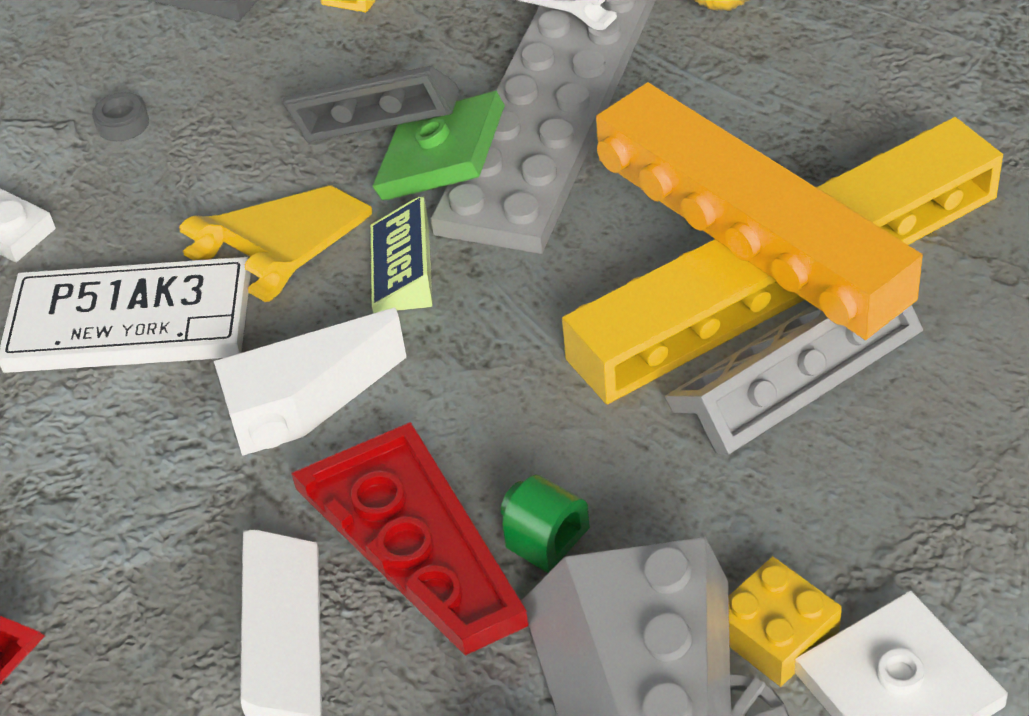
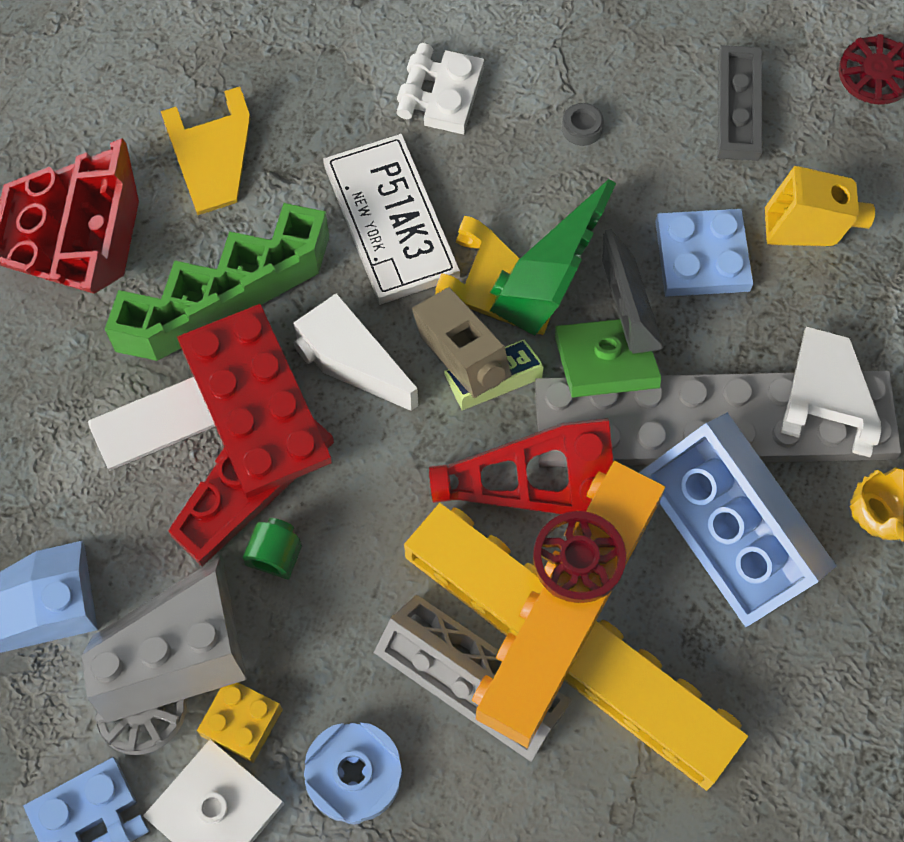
camera: 65 degrees right, 20 degrees up
(123, 510) = (195, 295): none -> bright green brick
(302, 155) = (544, 273): none -> green wedge
(315, 487) = (254, 400): none -> red plate
(346, 49) = (703, 252): none -> light blue plate
(353, 256) = (462, 342): none -> dark tan brick
(577, 192) = (586, 452): none -> red plate
(709, 158) = (579, 556): none -> dark red wheel
(724, 68) = (738, 520): none -> light blue slope
(883, 538) = (352, 743): none -> light blue plate

